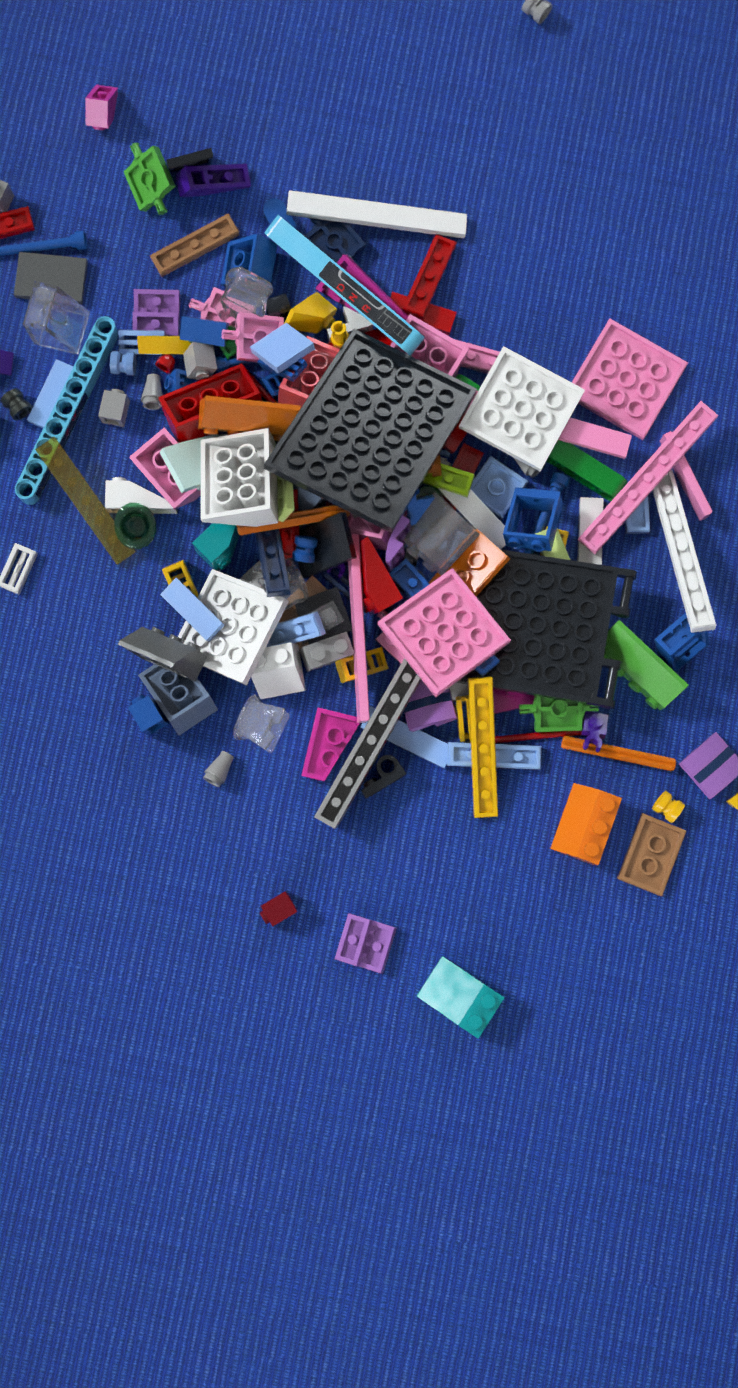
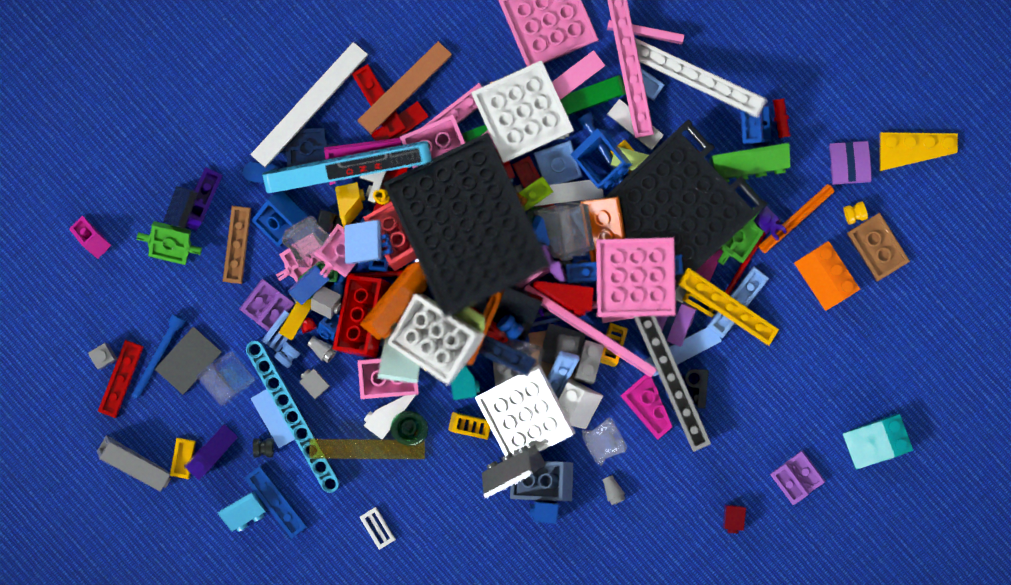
camera: 50 degrees left, 5 degrees up
(192, 609) = (495, 431): light blue tile -> none
(459, 289) = (404, 88): none -> nougat tile
(704, 666) = (781, 118): none -> red pin

